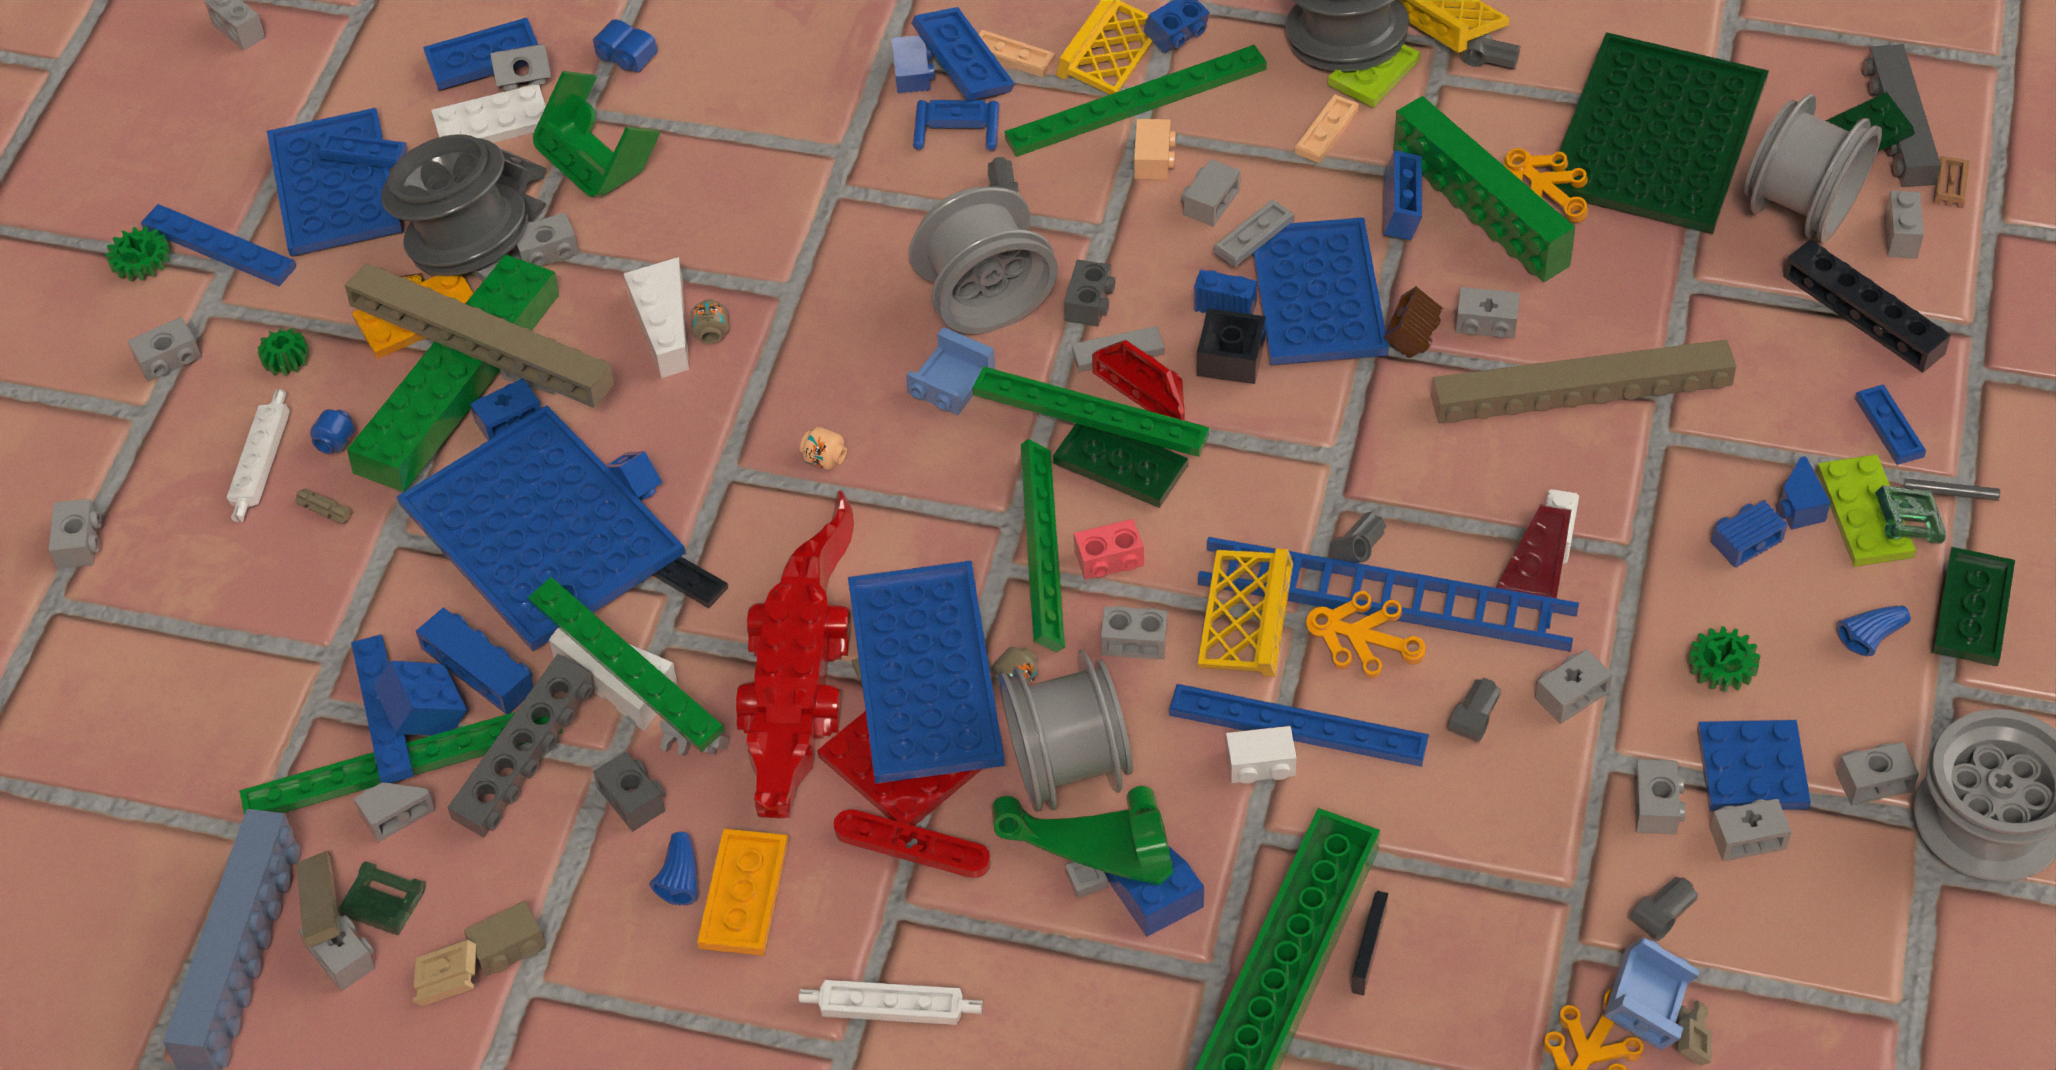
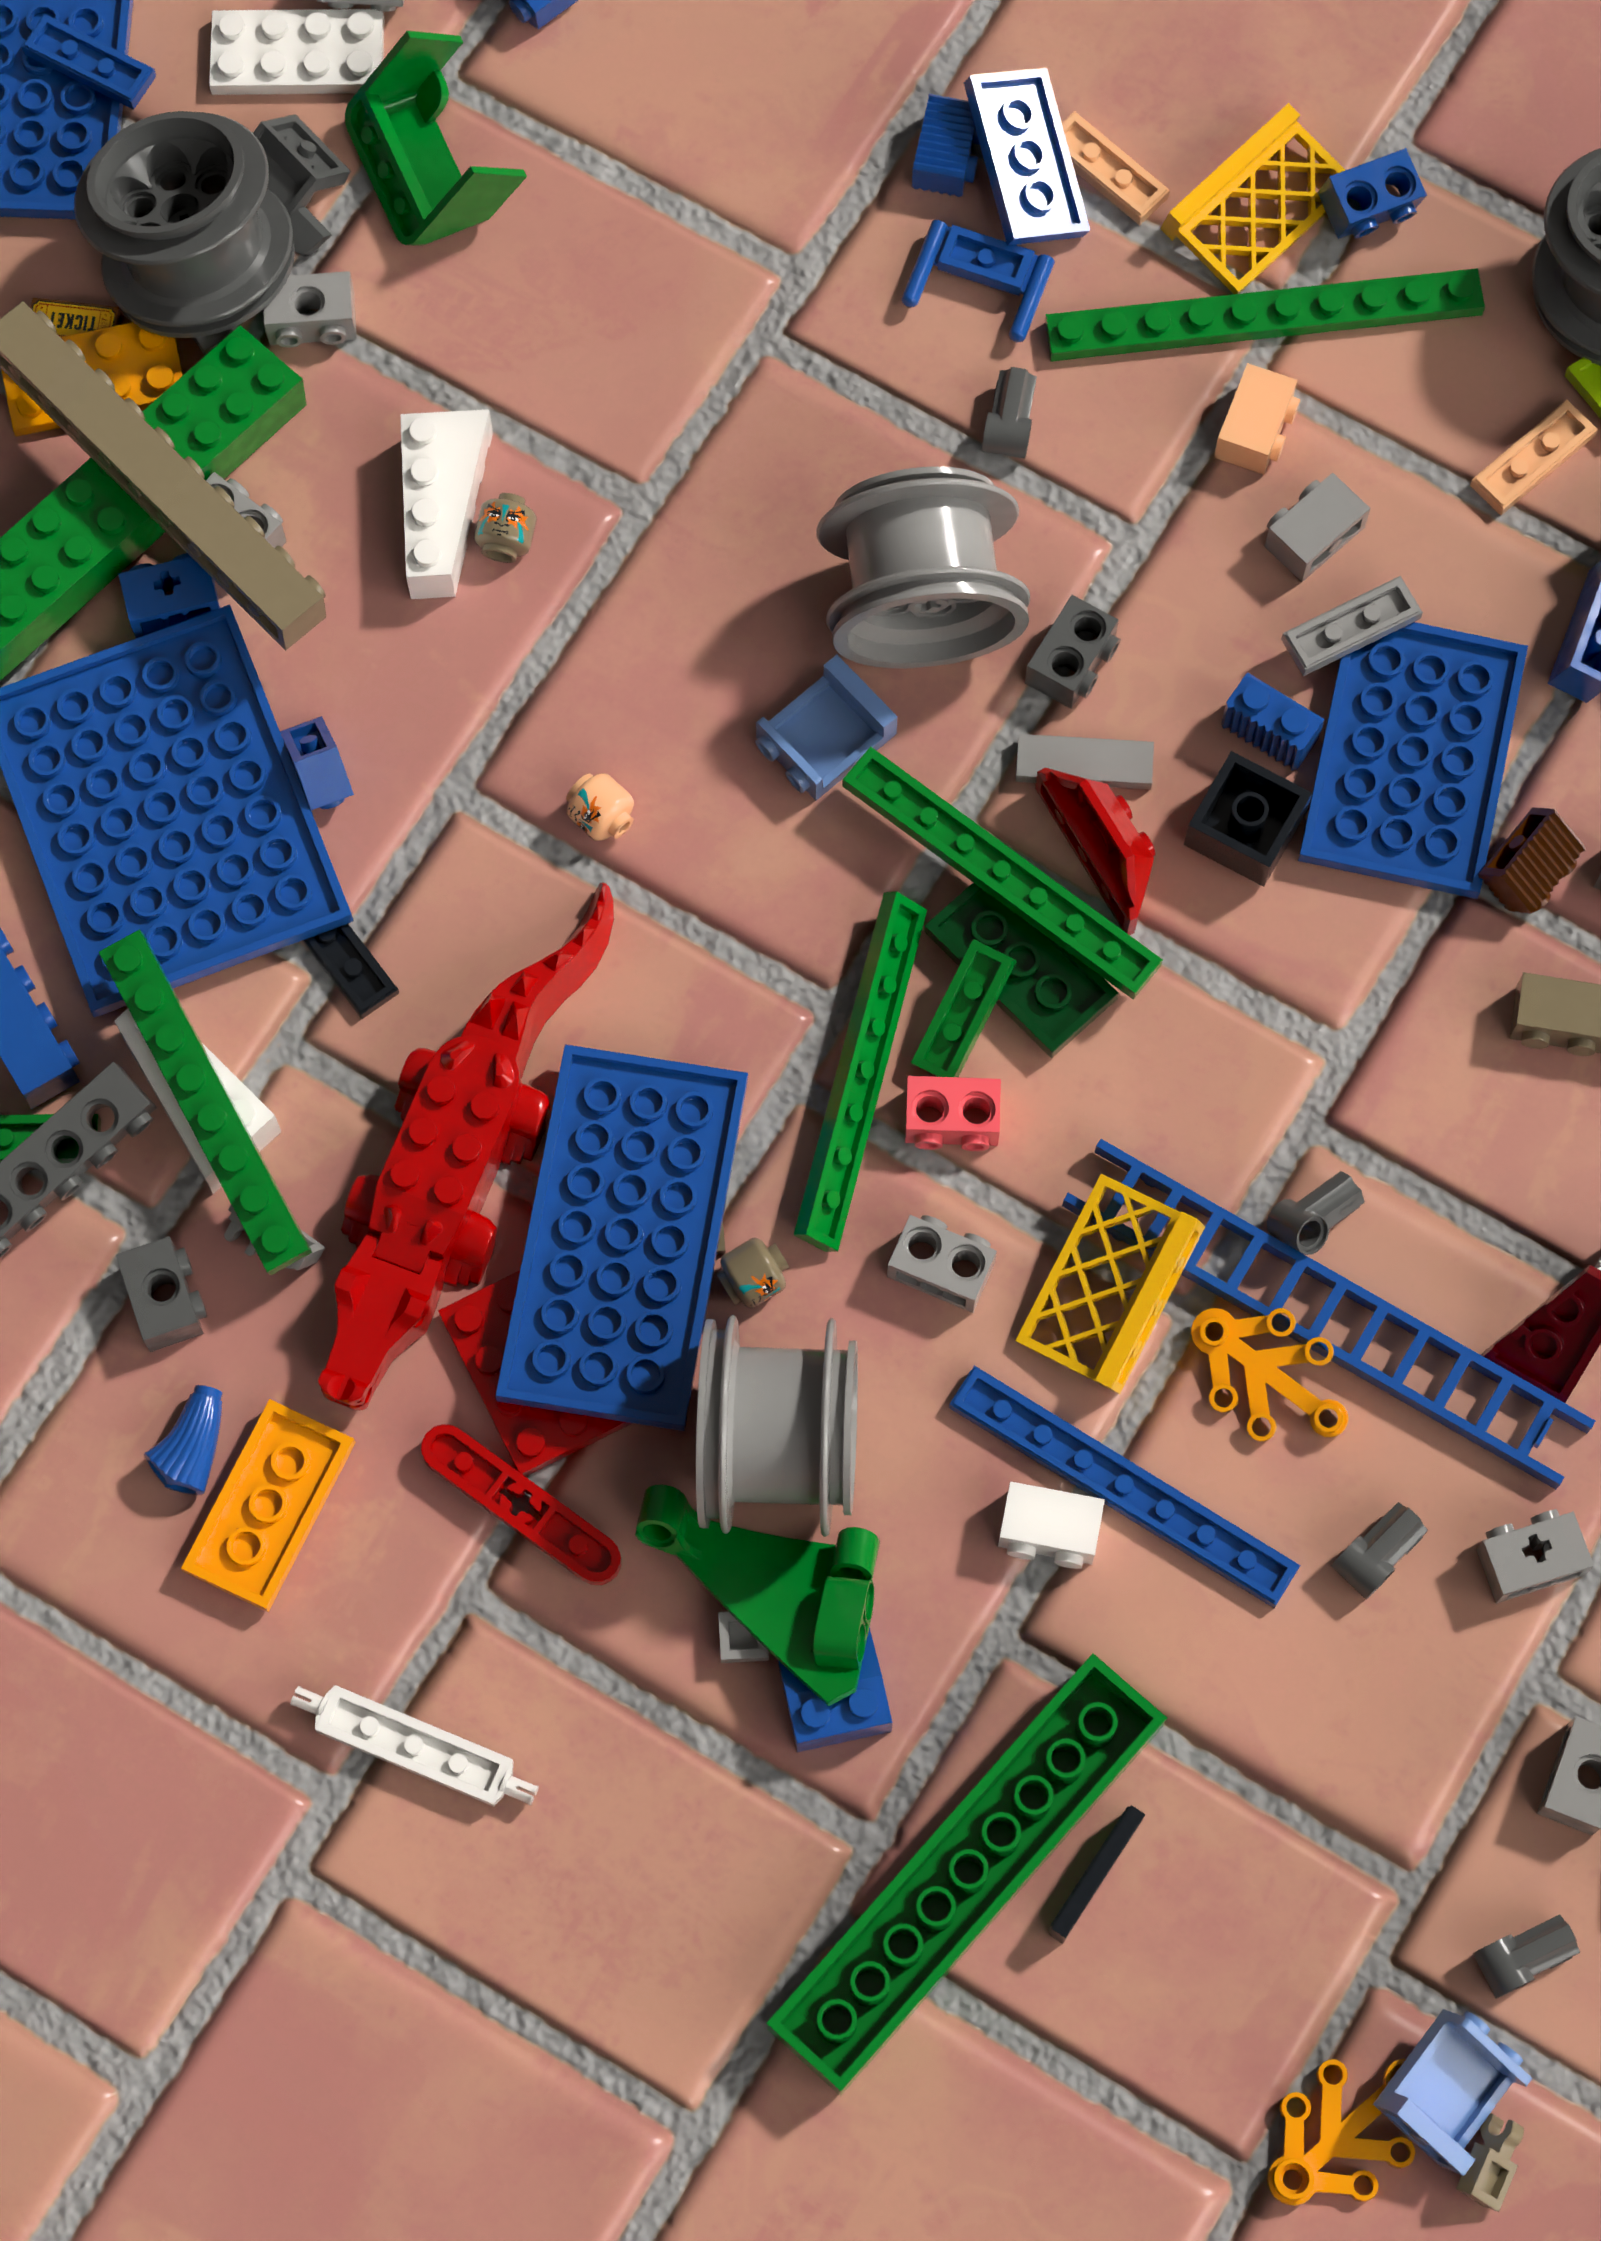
camera: 15 degrees right, 20 degrees up
(1095, 488) = (964, 1010): none -> green plate

